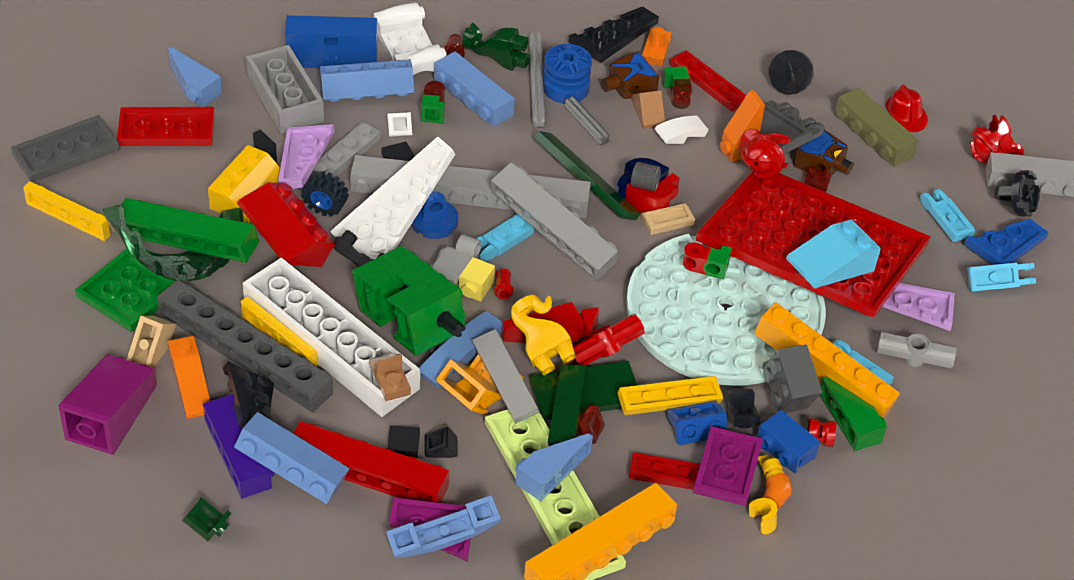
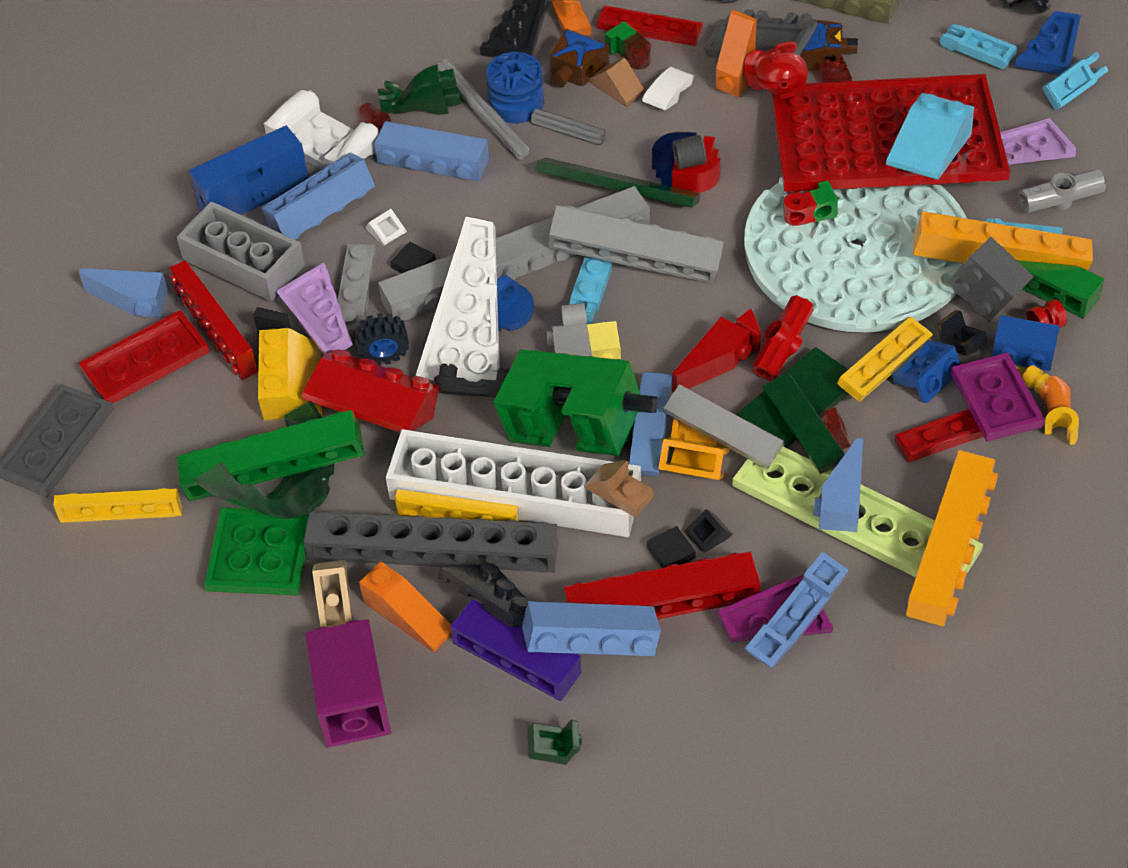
camera: 25 degrees left, 5 degrees up
(229, 121) = (213, 319): none -> red piece
(433, 103) = (404, 192): green leg -> none
(503, 287) = (636, 340): red pin -> none
(543, 336) = (726, 366): yellow hips -> none
(668, 219) = (729, 185): tan tile -> none

